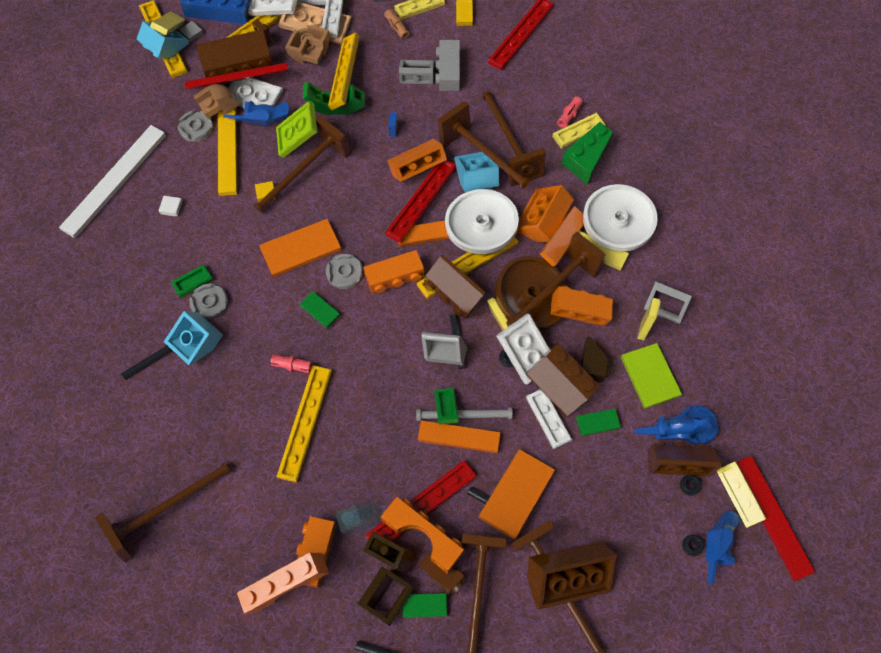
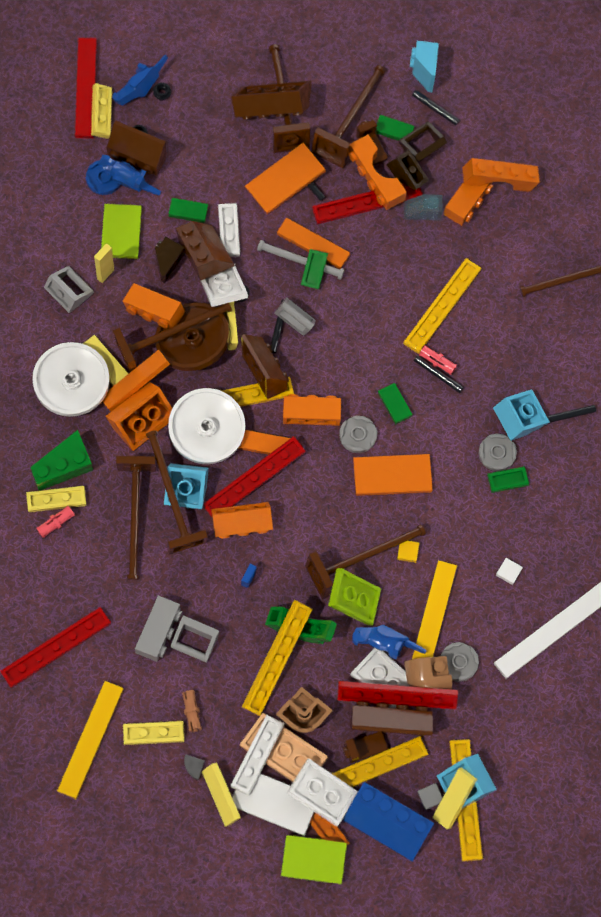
camera: 165 degrees left, 5 degrees up
(285, 352) = (439, 374): none -> black bar

